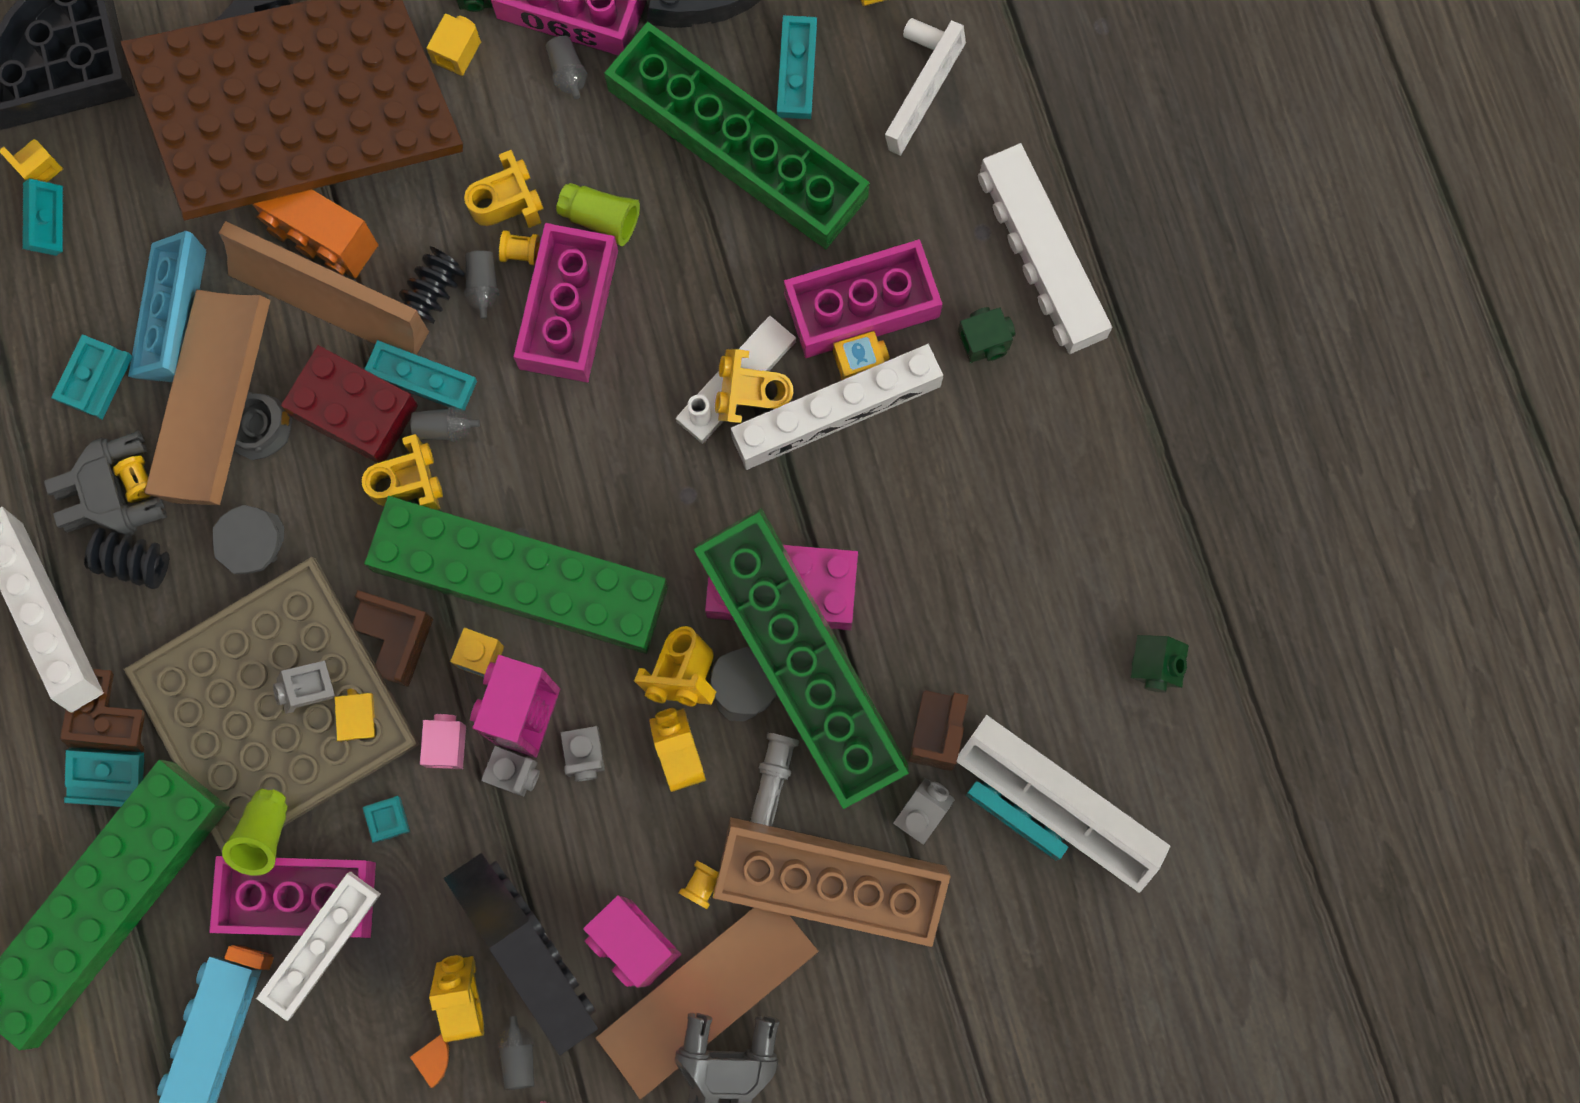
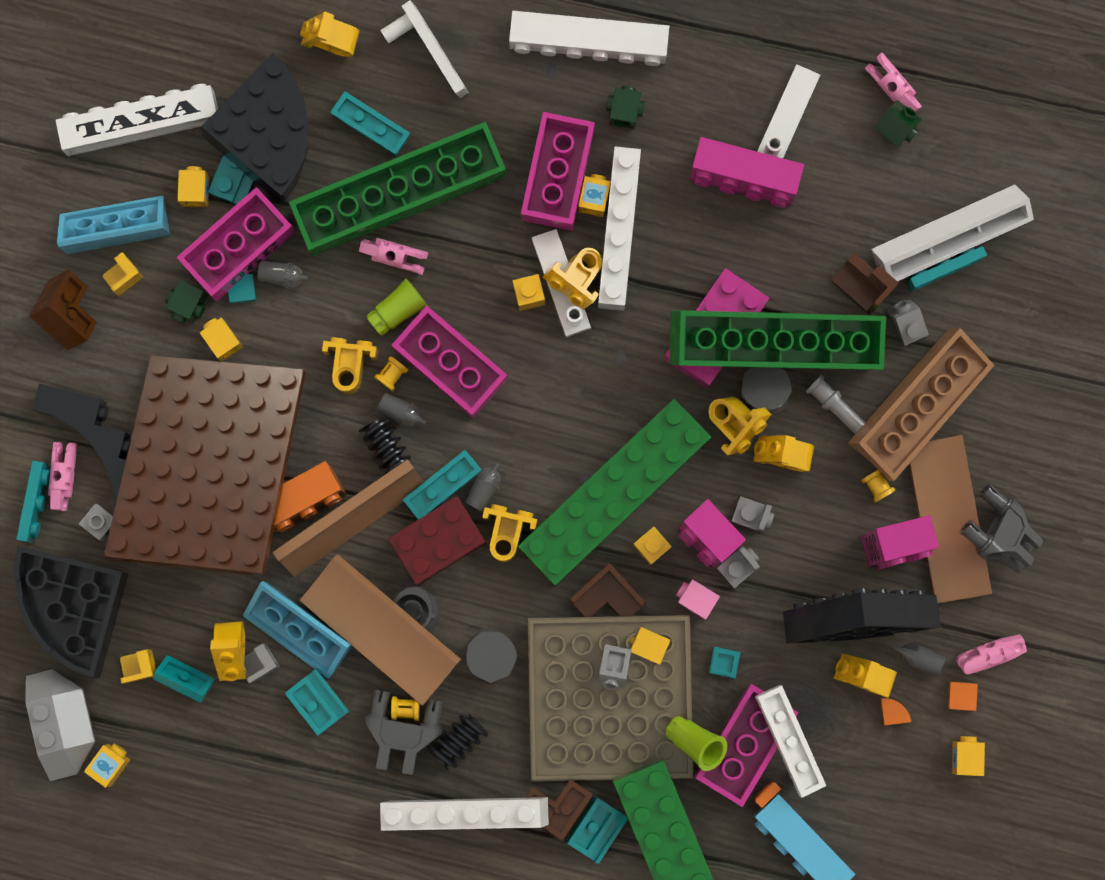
camera: 60 degrees left, 5 degrees up
(99, 245) = (229, 650): none -> yellow pin
(105, 290) = (260, 663): none -> light grey panel
(167, 19) = (97, 522): none -> light grey bracket
(526, 40) = (243, 291): none -> teal tile
(659, 174) = (381, 250): none -> bright pink hinge
(700, 346) = (529, 292): none -> yellow brick
(989, 512) = (746, 172): none -> dark pink brick
(1089, 528) = (789, 112): none -> white piece
(1207, 631) = (904, 91): none -> bright pink hinge

